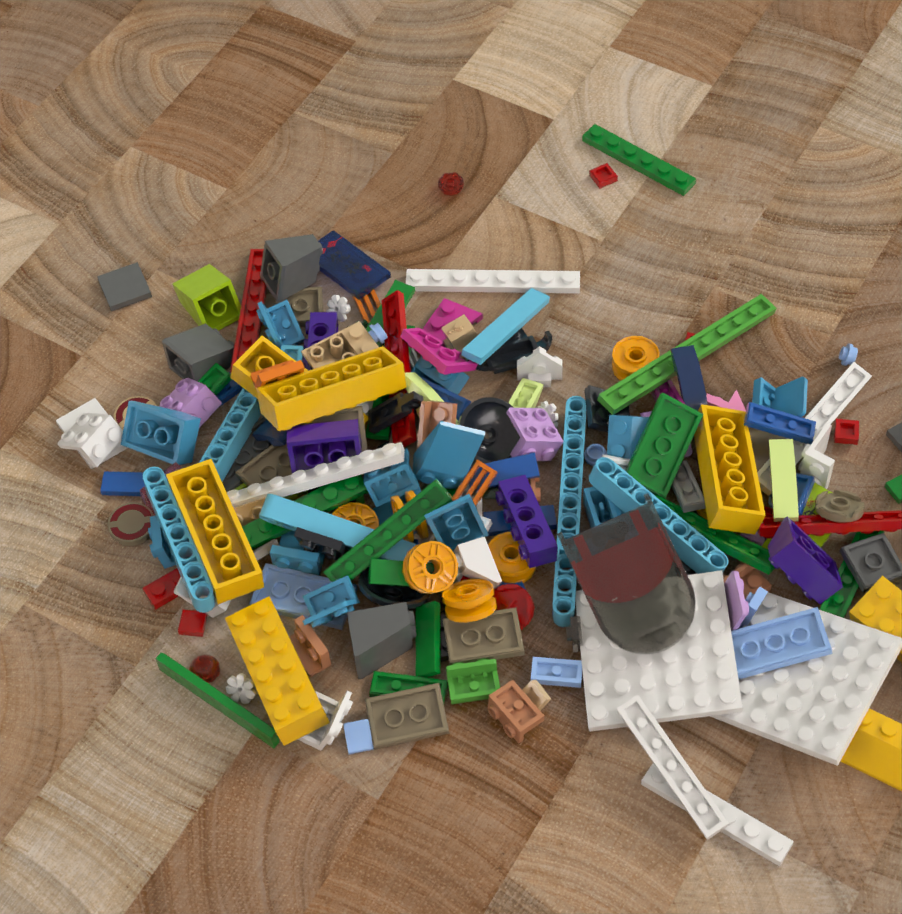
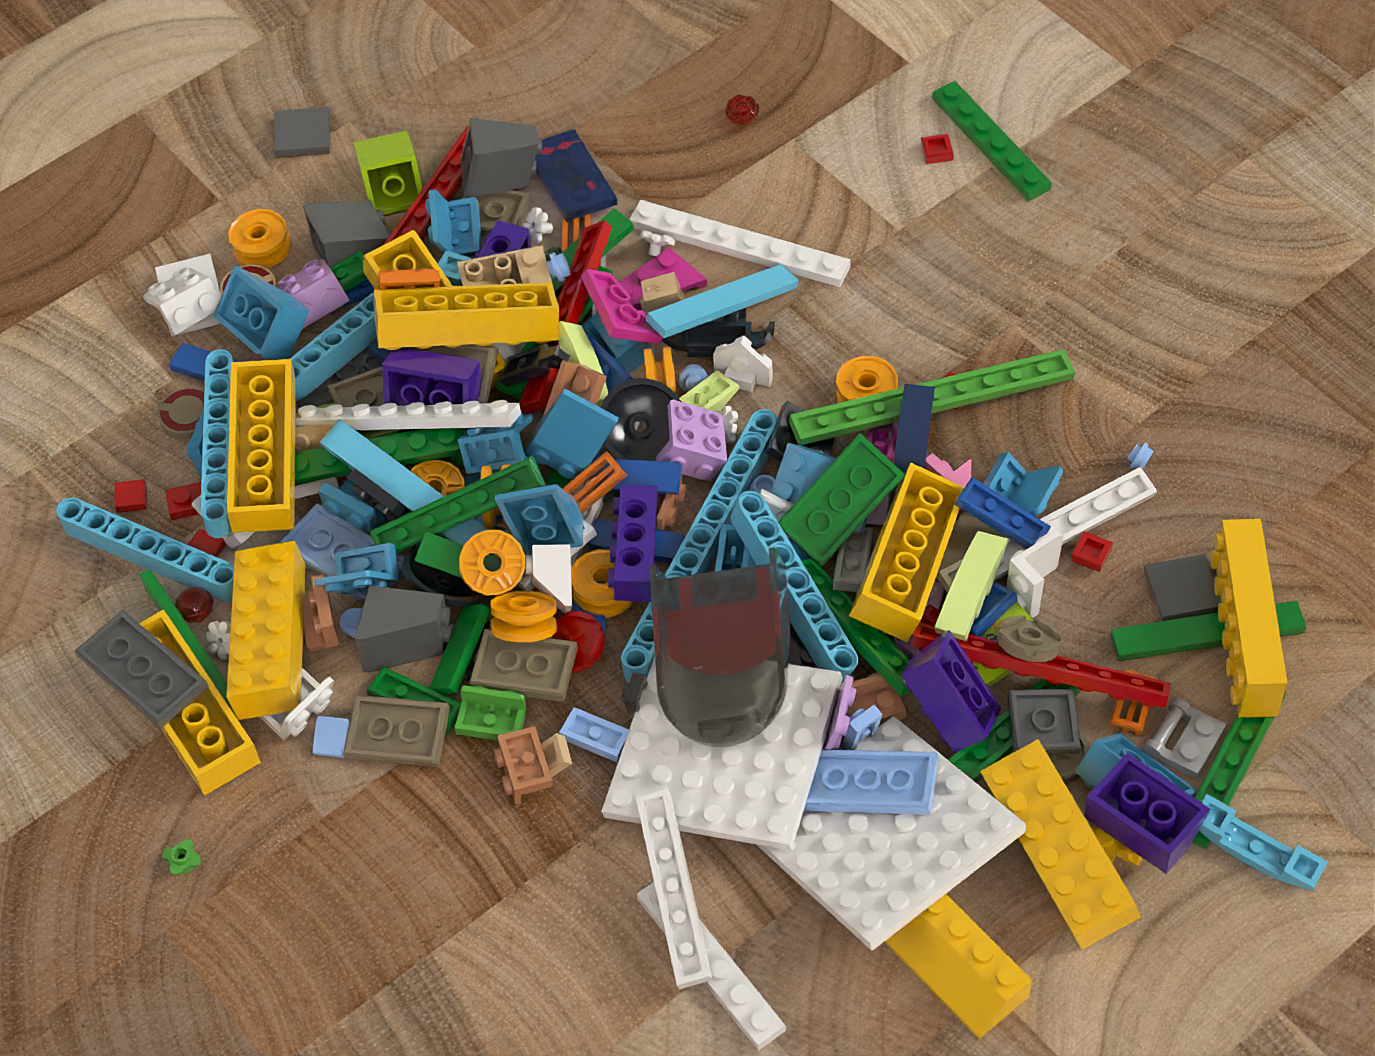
camera: 20 degrees right, 0 degrees up
(115, 600) = (130, 496): none -> red tile
(129, 375) = (259, 238): none -> light orange wheel
(141, 630) = (146, 548): none -> medium azure beam
(195, 730) = (141, 669): none -> dark grey tile
(235, 745) = (206, 730): none -> yellow brick
(287, 872) = (184, 865): none -> bright green plate
(336, 643) = (350, 620): none -> light blue plate
(433, 296) = (656, 241): none -> white plant
(485, 388) = (660, 370): none -> light orange wheel
(506, 388) = (691, 376): none -> light blue plate

